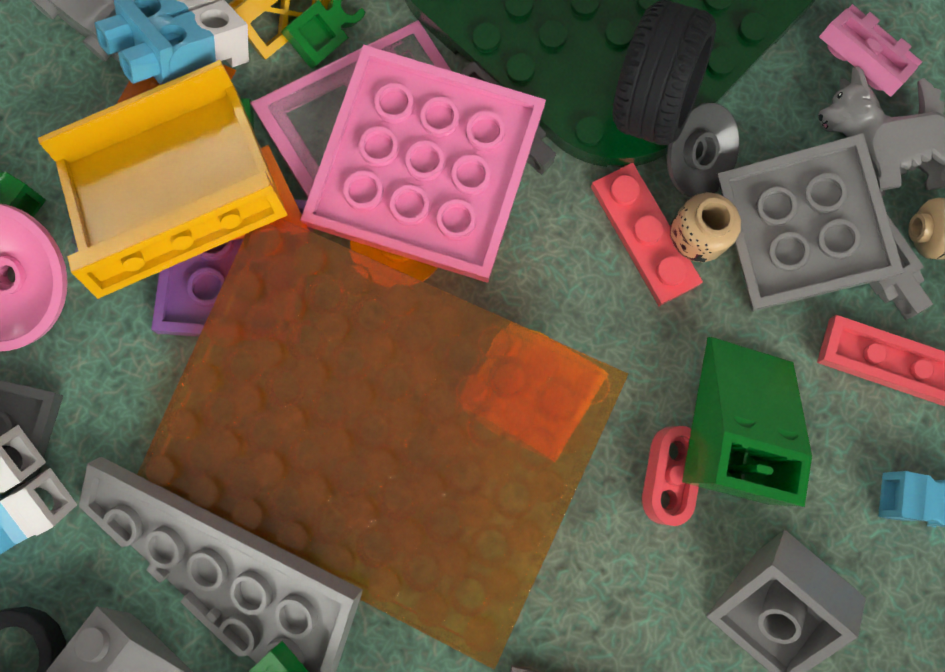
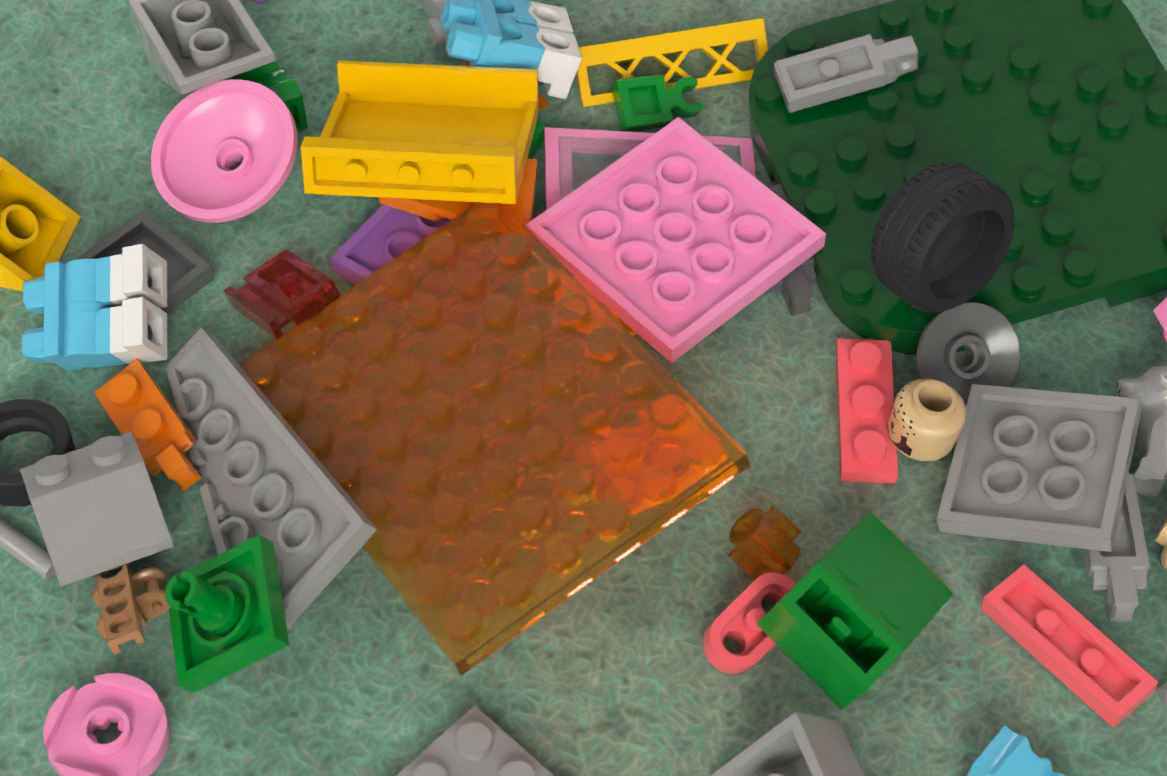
camera: 35 degrees right, 25 degrees down
(103, 571) = (141, 407): none -> orange hinge
(134, 389) = (283, 293): none -> clear red plate
(646, 404) = (764, 542): none -> clear orange gear

